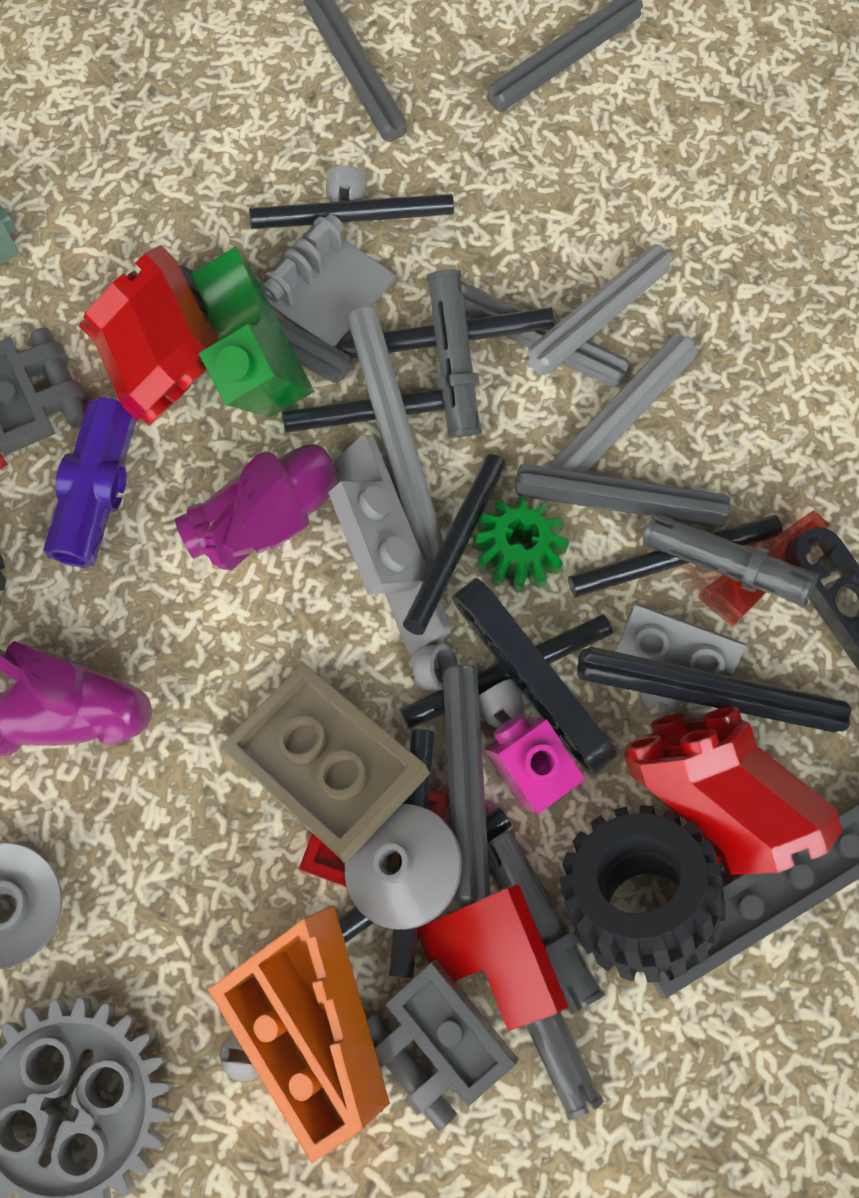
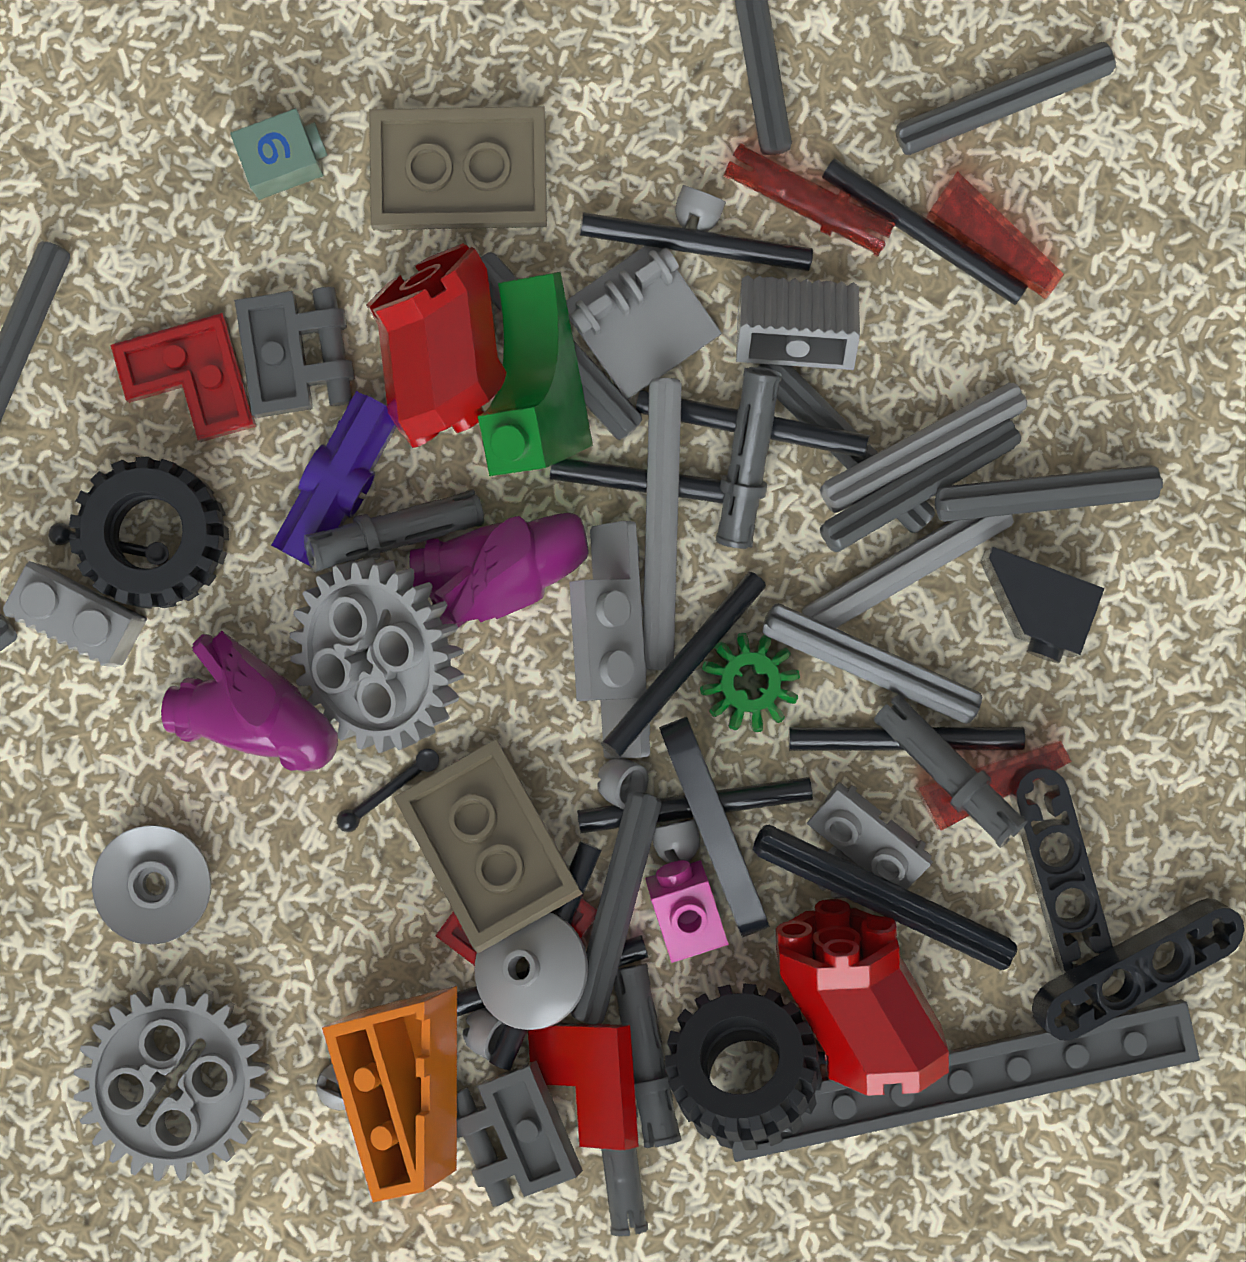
camera: 25 degrees right, 15 degrees up
(130, 208) = (458, 168): none -> dark tan plate
(134, 512) = (379, 534): none -> dark grey pin
(167, 610) = (376, 654): none -> light grey gear
(184, 785) = (426, 760): none -> black hinge
(374, 949) = (483, 1032): none -> light grey hinge
(436, 157) = (810, 200): none -> clear red pin
(464, 239) = (798, 323): none -> light grey brick
(537, 159) = (925, 231): none -> black bar
(594, 145) = (983, 228): none -> clear red piece
(606, 338) = (918, 486): none -> dark grey axle
(717, 315) = (1048, 493): none -> dark grey axle
(748, 403) = (1042, 604): none -> black slope

